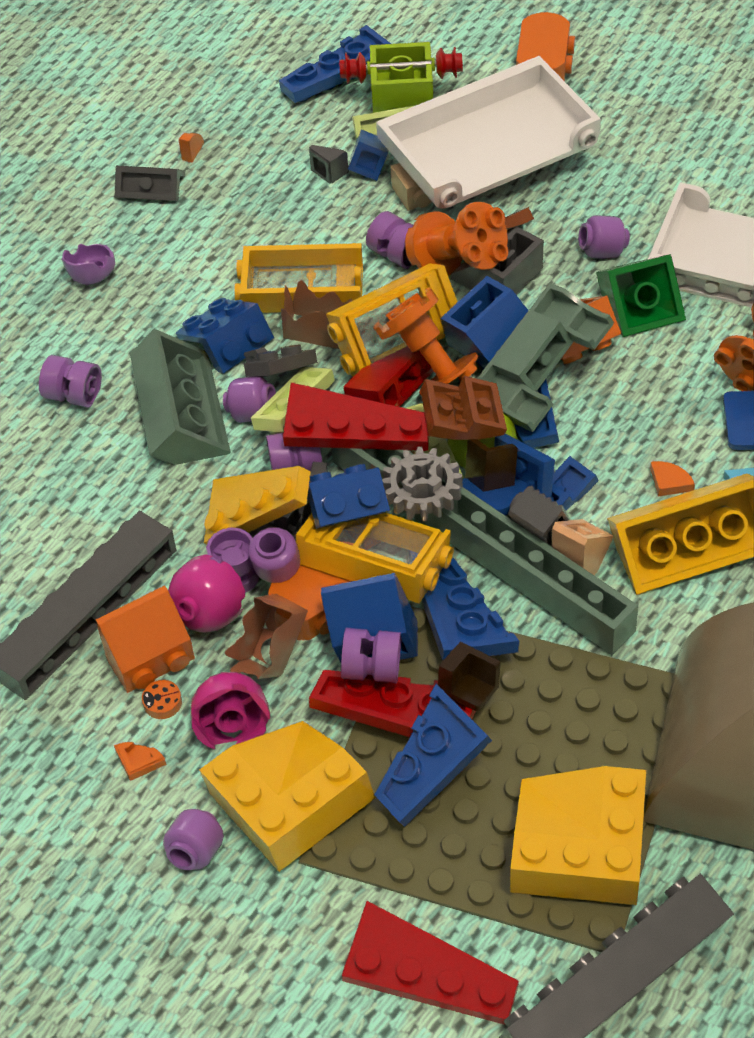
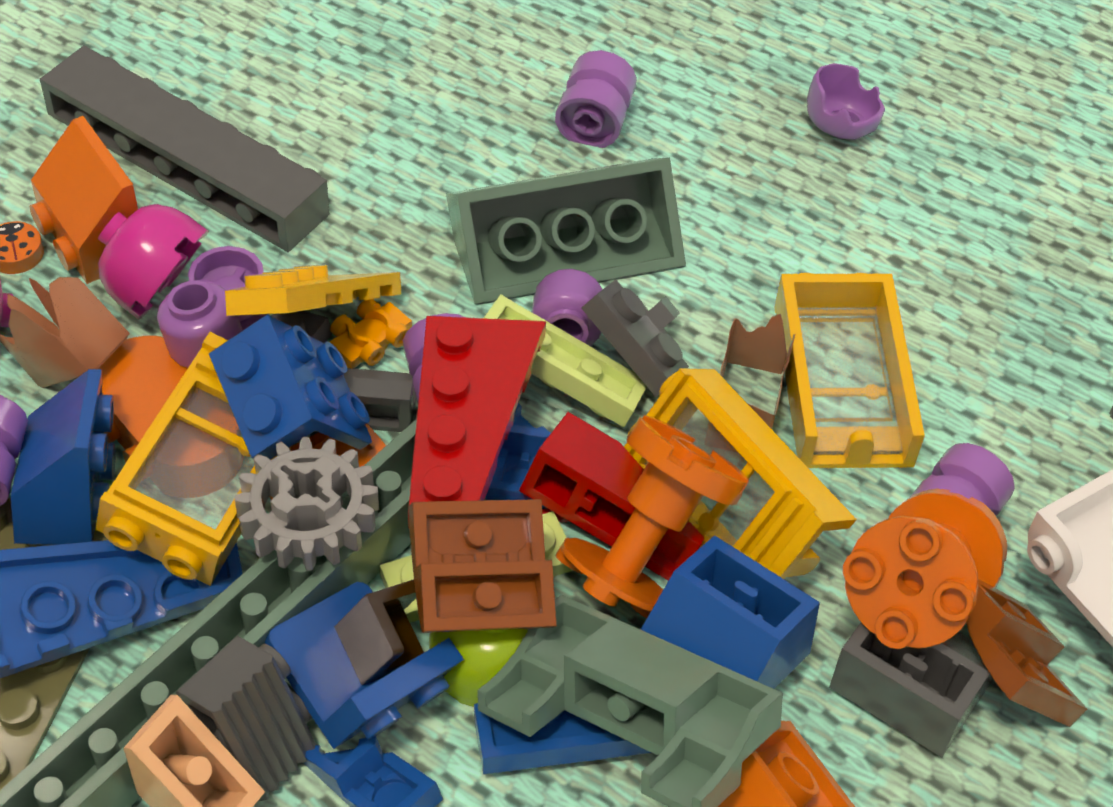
camera: 80 degrees right, 0 degrees up
(147, 183) = (1047, 165): dark grey panel -> none
(227, 331) = (712, 275): blue bracket -> none

